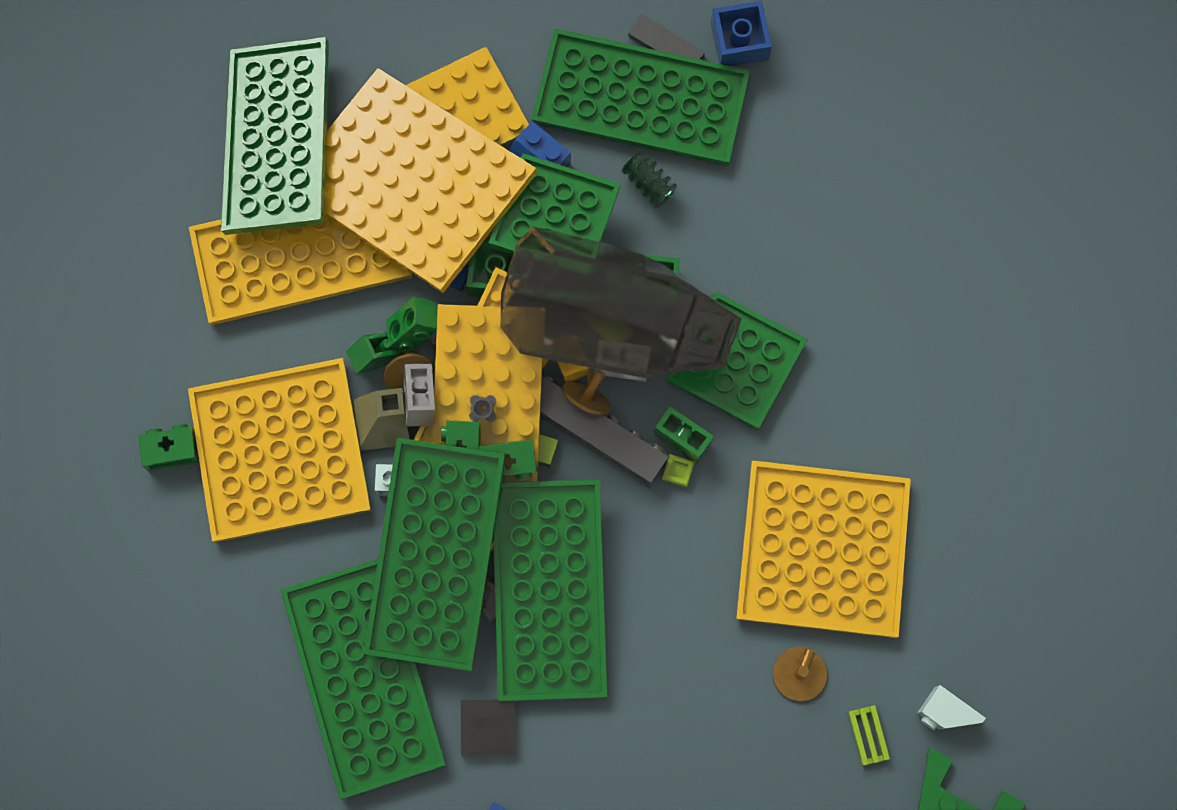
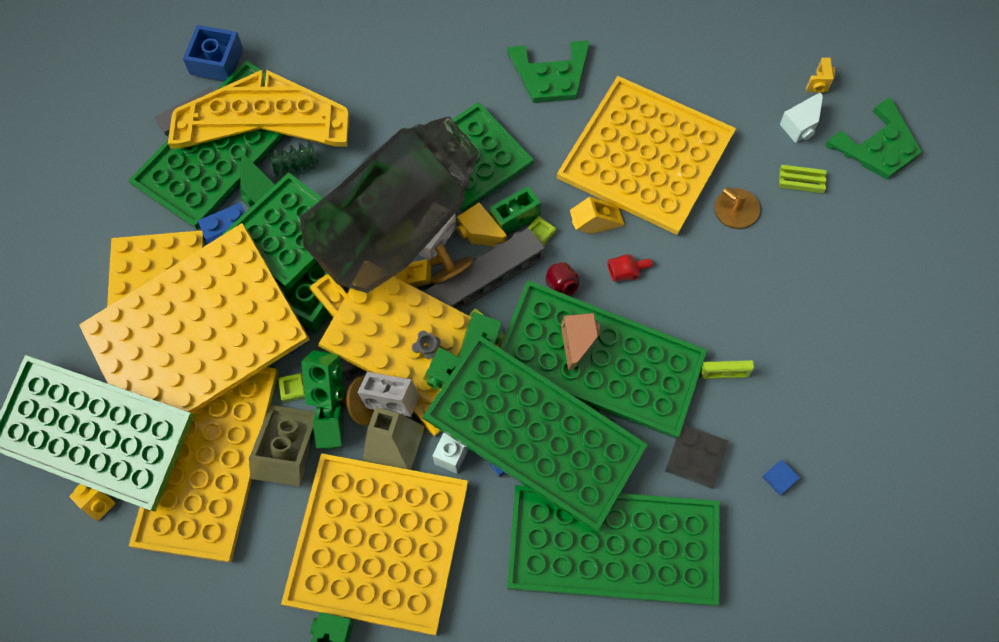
camera: 65 degrees left, 10 degrees down
(214, 171) = (92, 501): none -> yellow bracket
(337, 317) = (282, 446): none -> olive slope
(399, 295) = (291, 387): none -> lime tile
(554, 557) = (578, 336): none -> nougat slope
(593, 726) = (726, 369): none -> lime tile
(600, 155) = (253, 182): none -> green slope
(626, 516) = (562, 278): none -> dark red head
(651, 404) = (480, 227): none -> yellow slope
(672, 579) = (626, 267): none -> red piece
(689, 105) = (250, 106): none -> yellow wing
(718, 524) = (596, 216): none -> yellow slope
(877, 407) = (551, 79): none -> green wing
(1022, 718) = (824, 77): none -> yellow bracket

